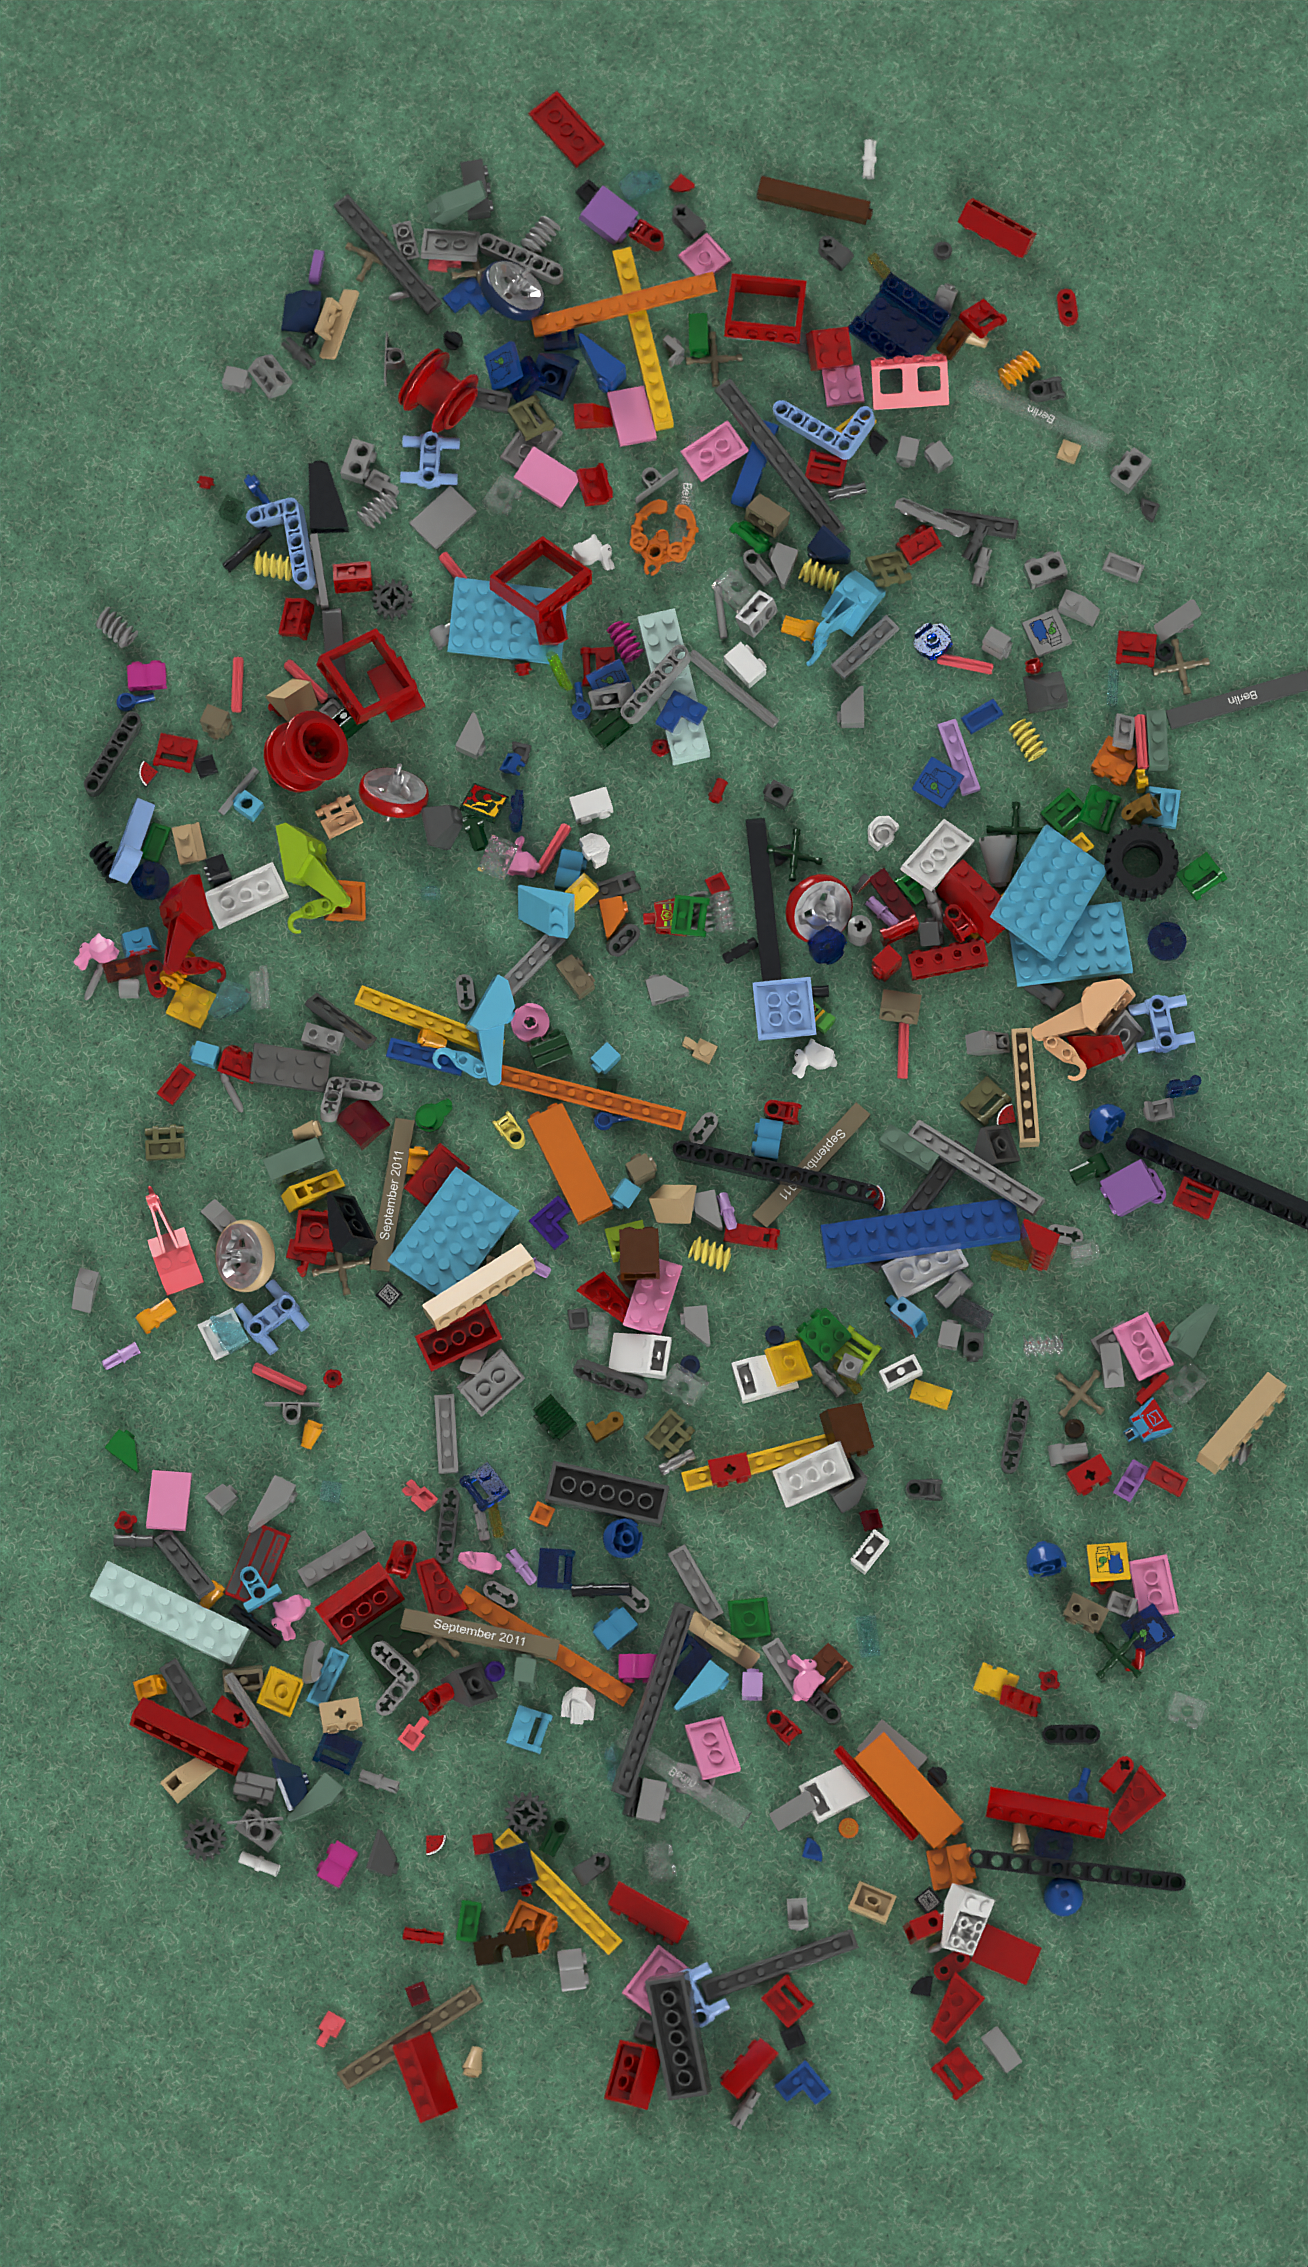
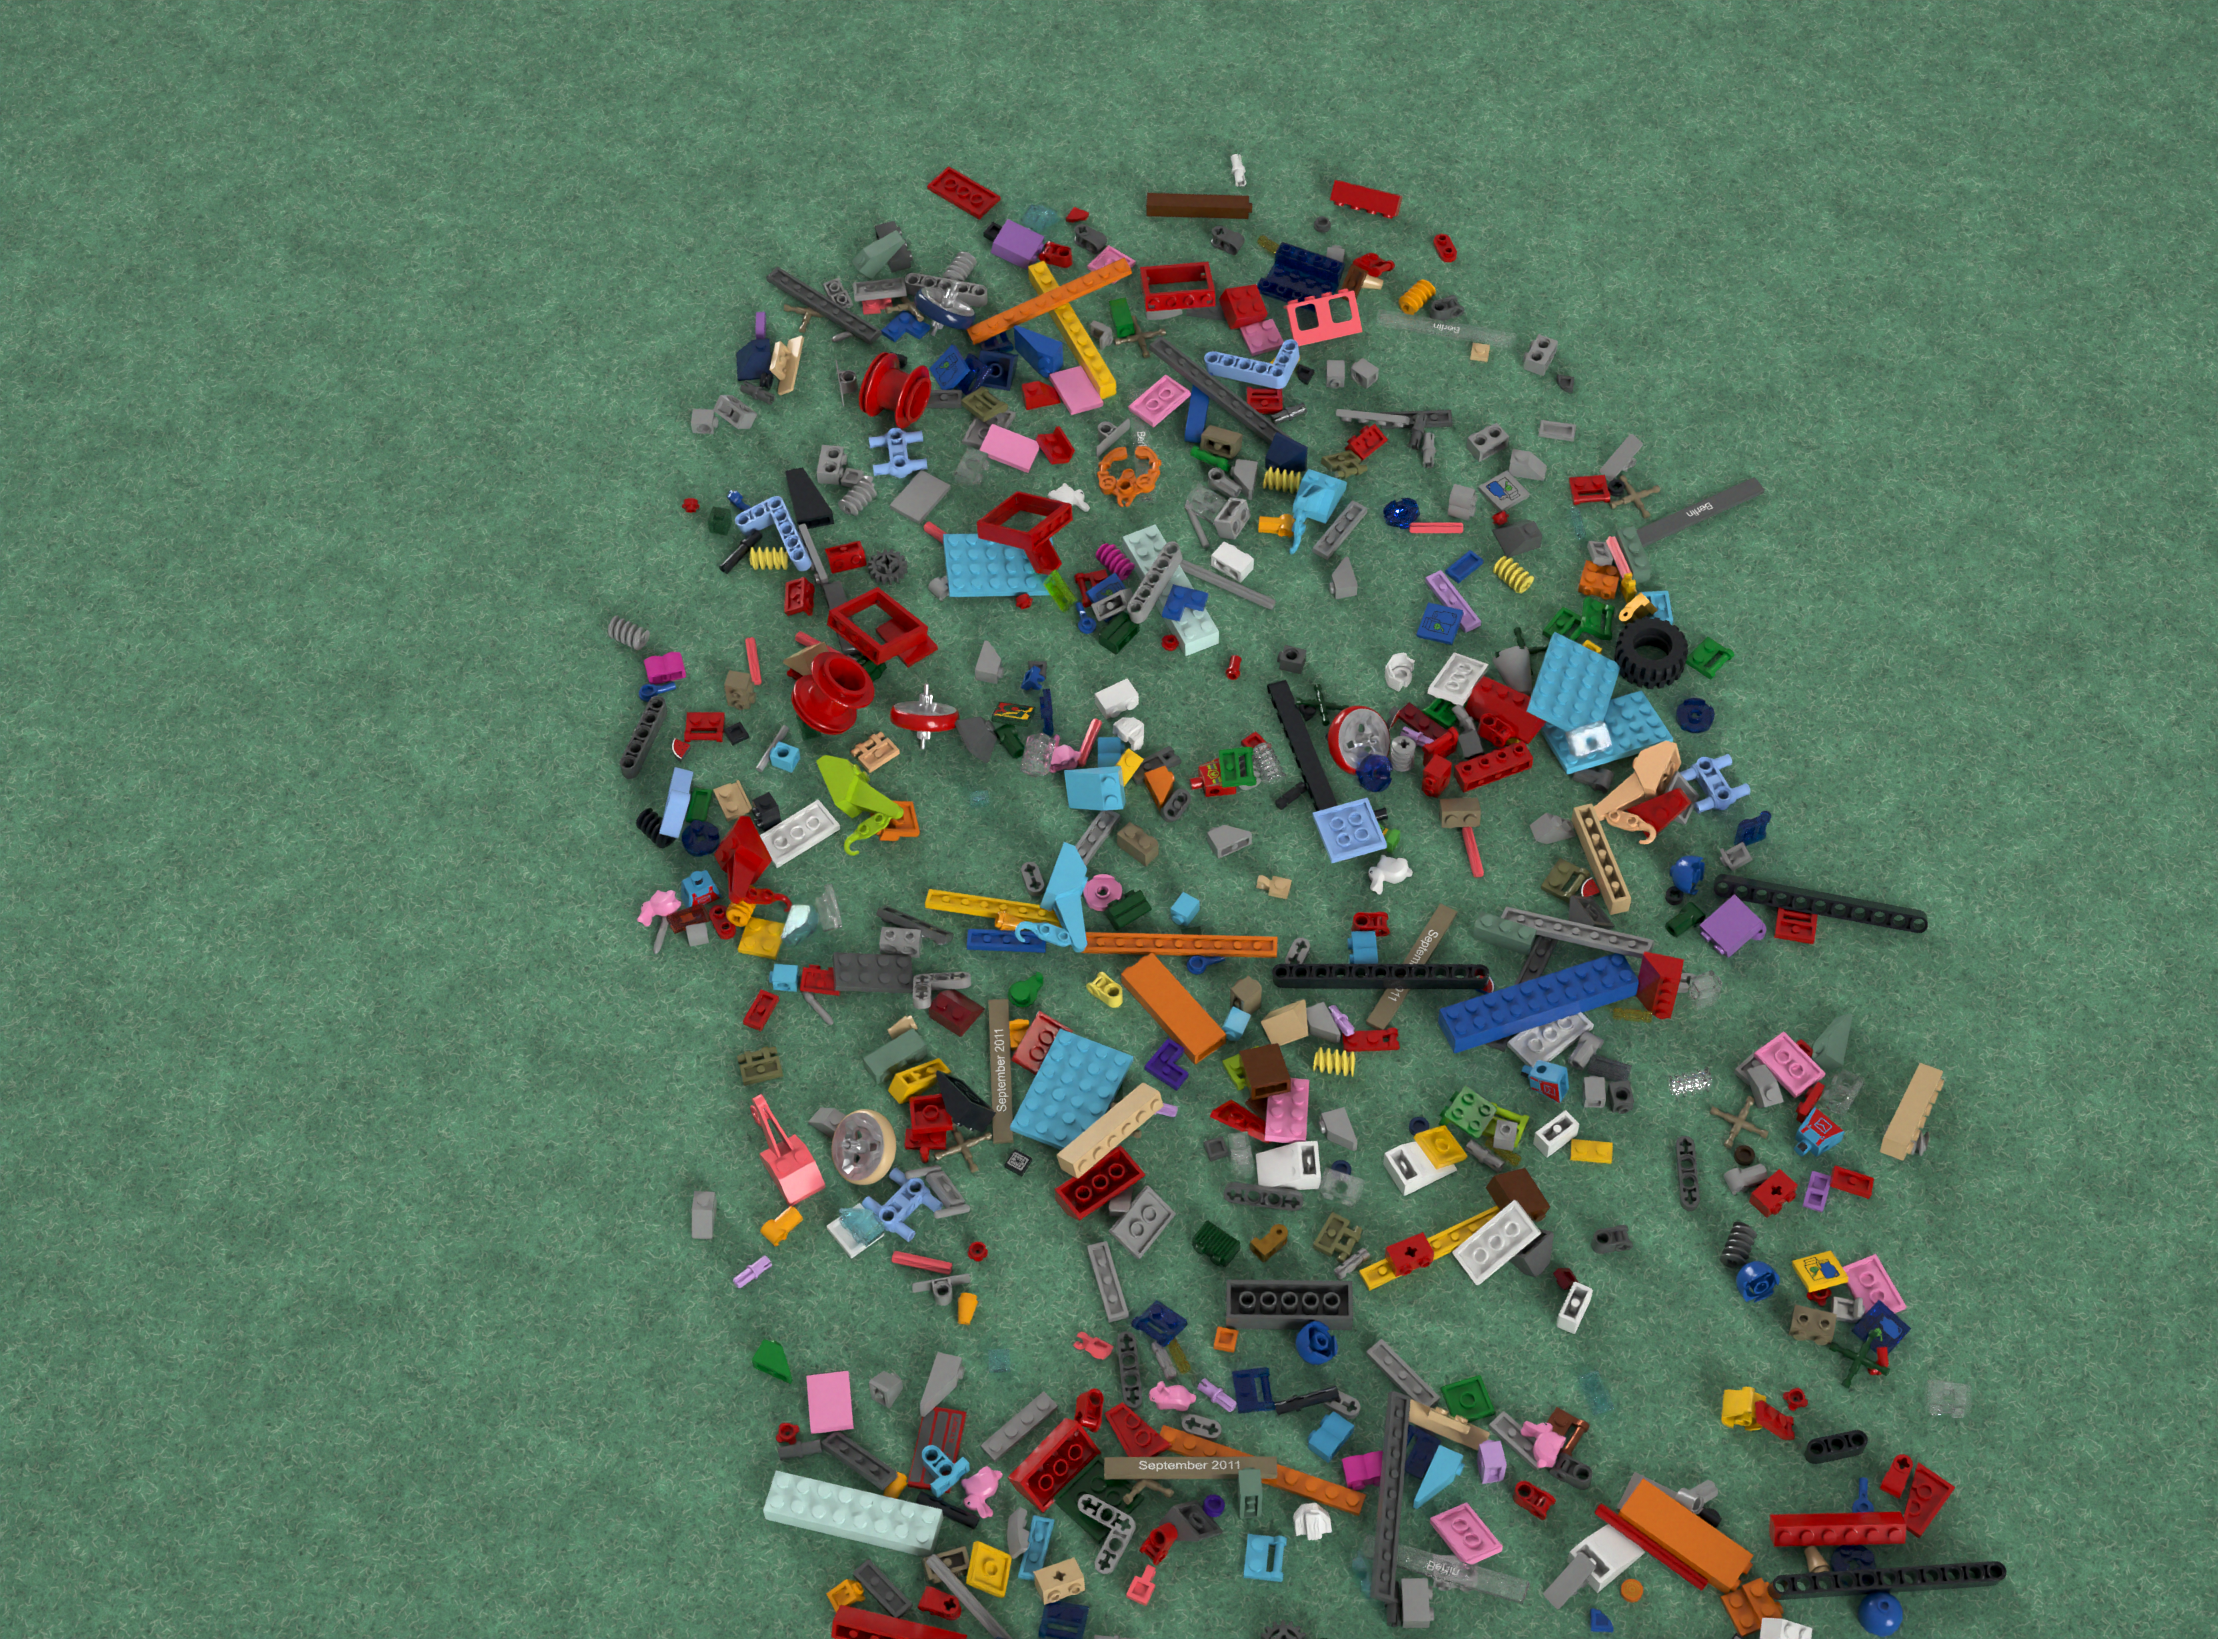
camera: 15 degrees left, 20 degrees down
(313, 1309) = (944, 1190): none -> light grey plate
(925, 1758) = (1697, 1496): none -> light grey piece
(1036, 954) = (1577, 739): none -> clear brick
(1039, 1520) = (1738, 1245): none -> dark grey piece

